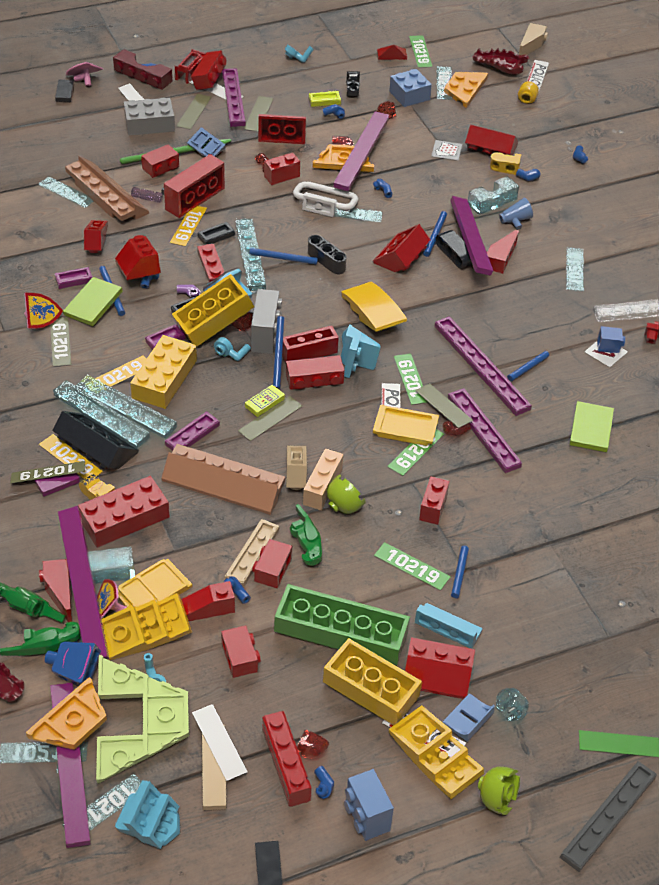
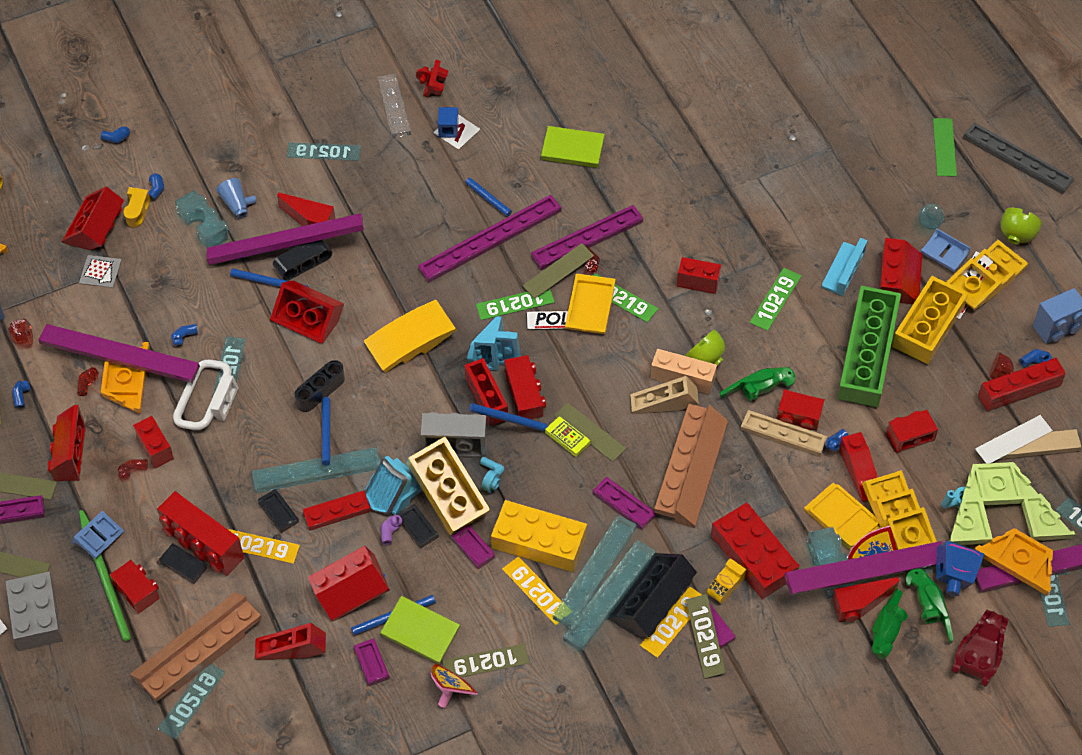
camera: 90 degrees left, 10 degrees up
(146, 194) = (202, 597): axle -> none
(459, 571) = (779, 258): blue bar -> none

